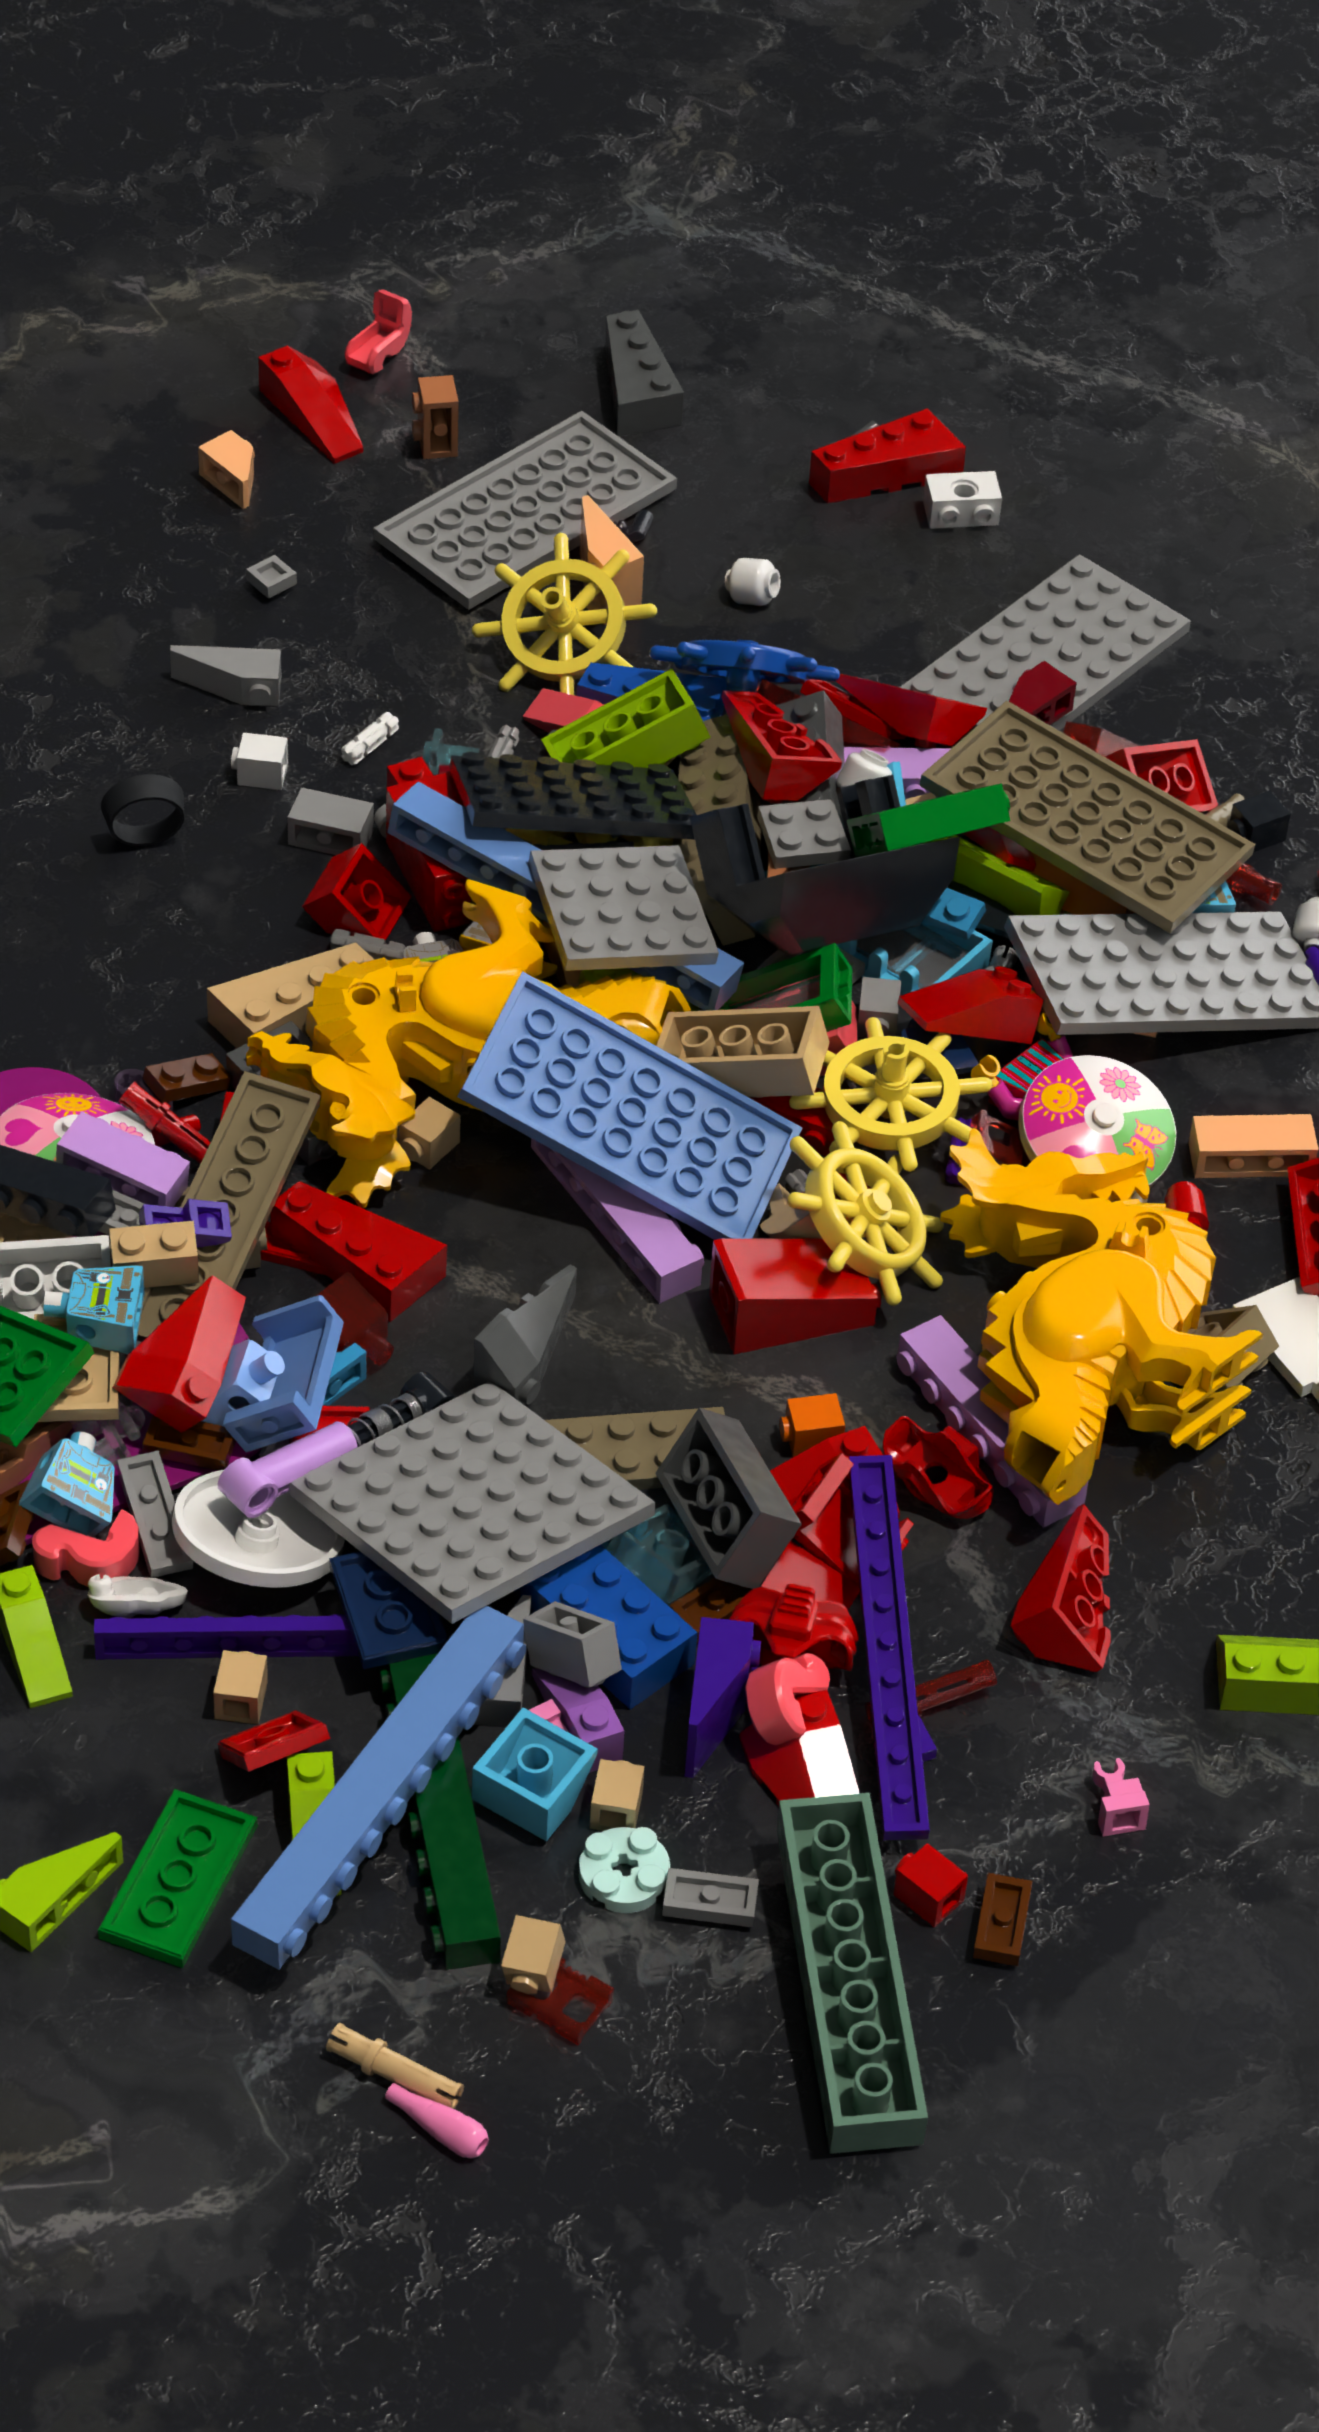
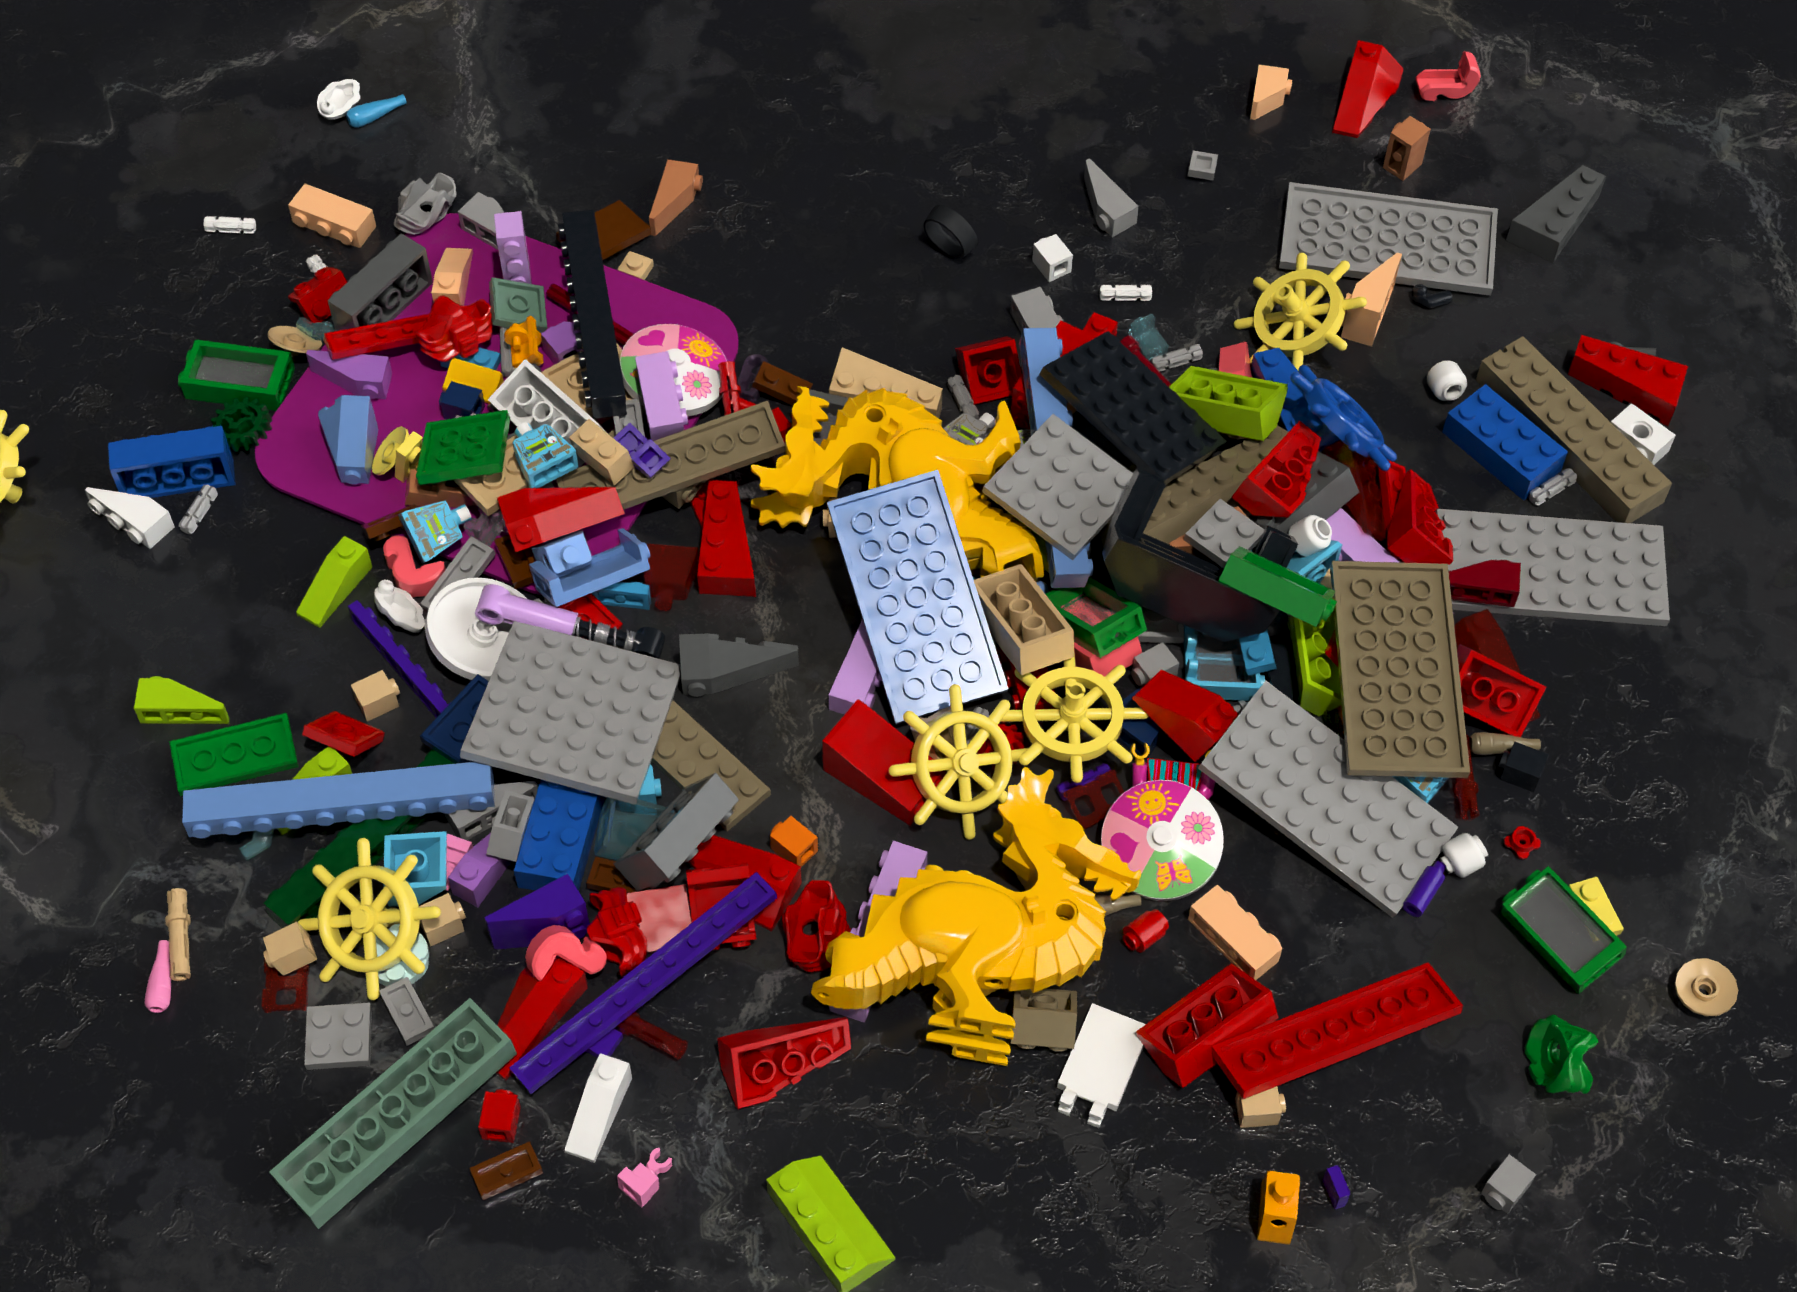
camera: 55 degrees right, 10 degrees up
(337, 1926) = (259, 843): none -> clear light blue arm
(577, 1843) = (369, 918): none -> light yellow piece
(680, 1986) = (338, 1036): none -> light grey plate
(871, 590) = (1504, 441): none -> blue brick
(908, 537) = (1597, 451): none -> dark tan piece
(954, 597) = (1552, 487): none -> light grey axle
(994, 1786) = (598, 1107): none -> white slope

